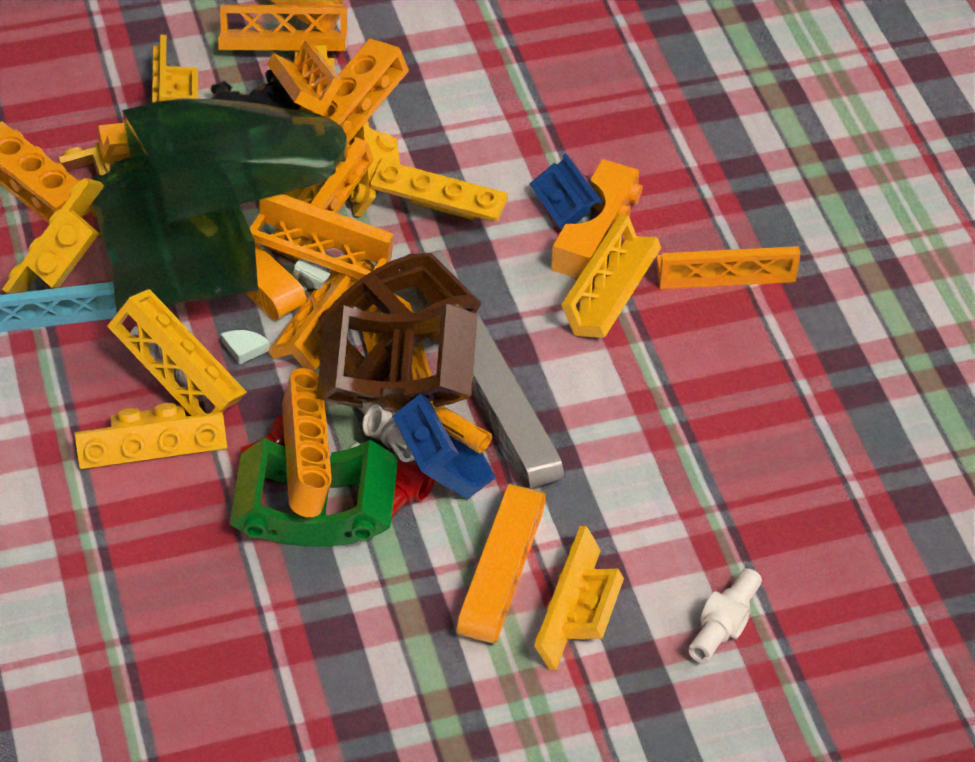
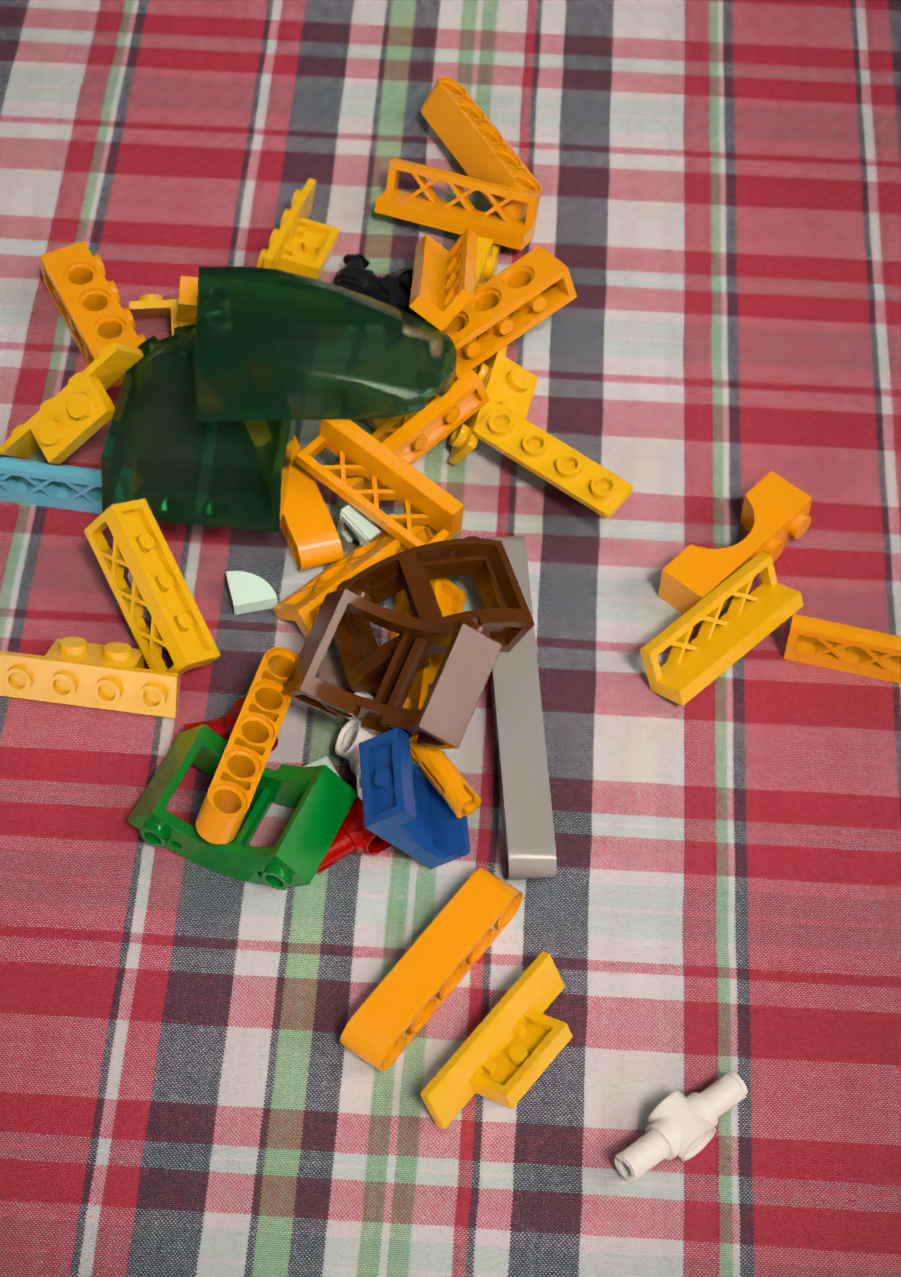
camera: 20 degrees right, 5 degrees up
(565, 192) = (711, 501): blue plate -> none

